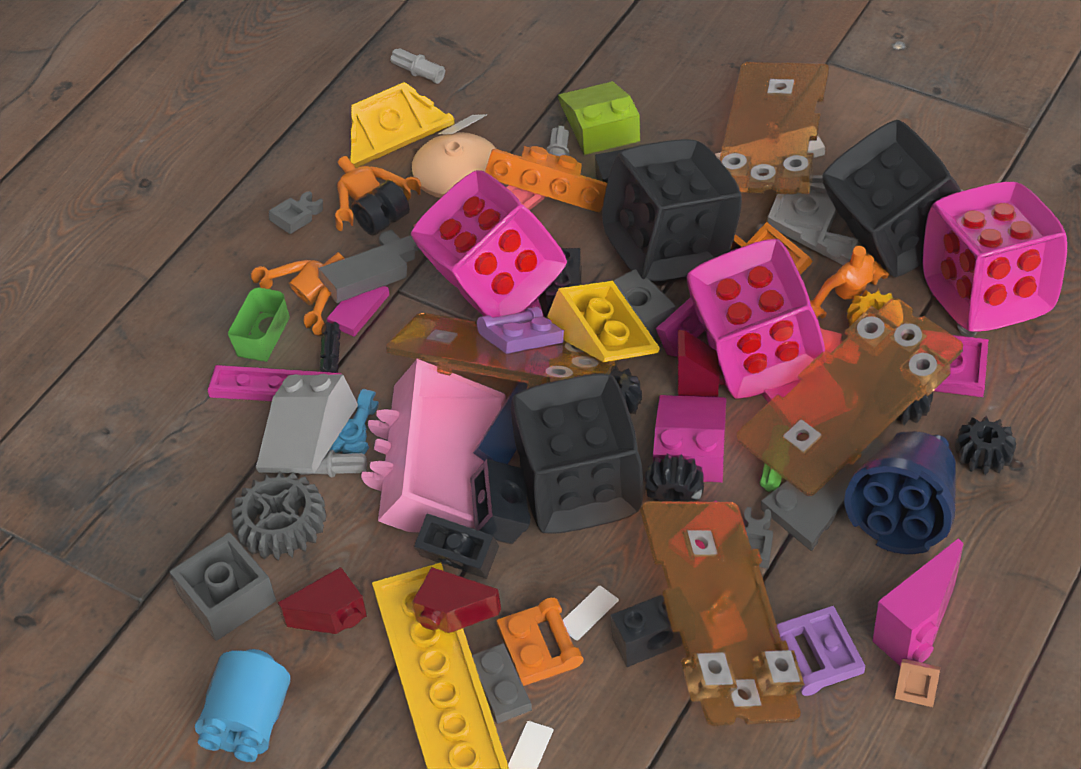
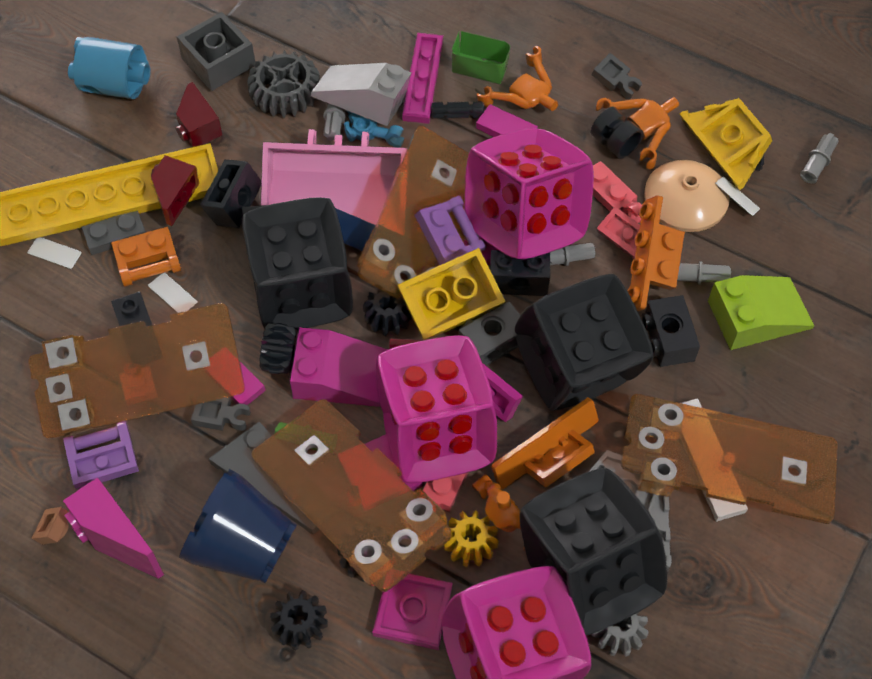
camera: 85 degrees right, 10 degrees up
(370, 268) = (528, 112): dark grey piece -> none

